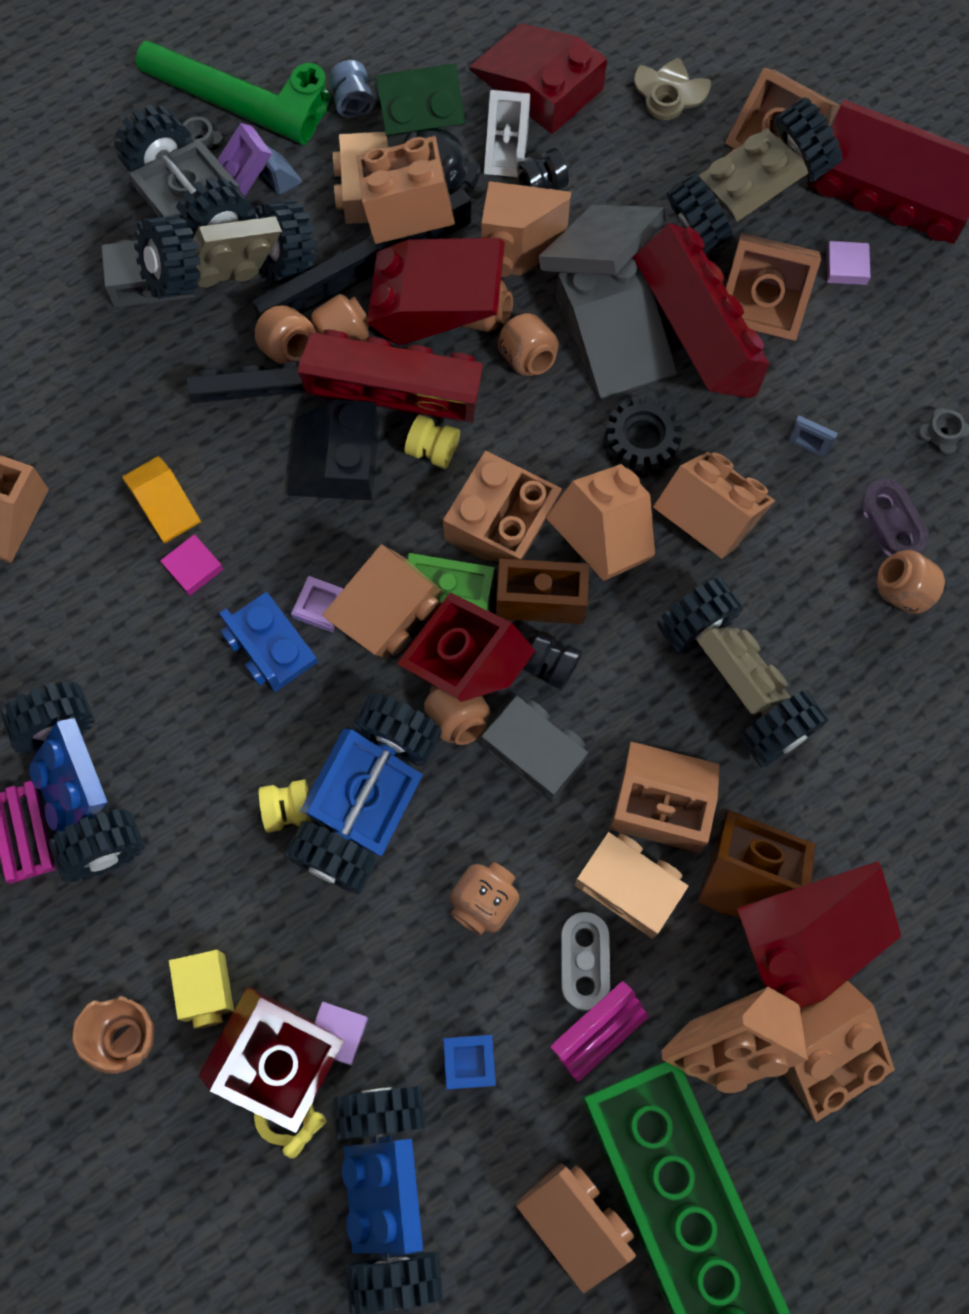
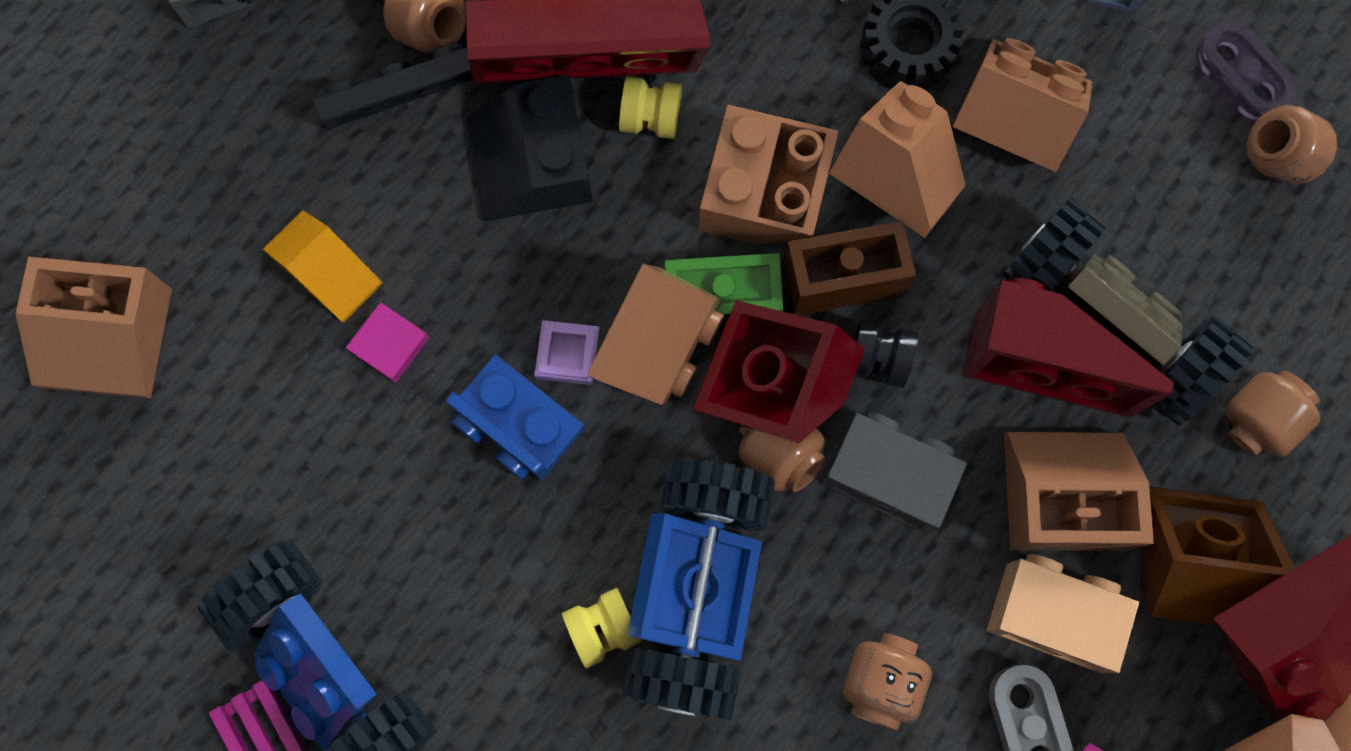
camera: 15 degrees left, 5 degrees up
(676, 687) = (1057, 351): none -> dark red slope
(837, 778) = (1272, 414): none -> nougat head

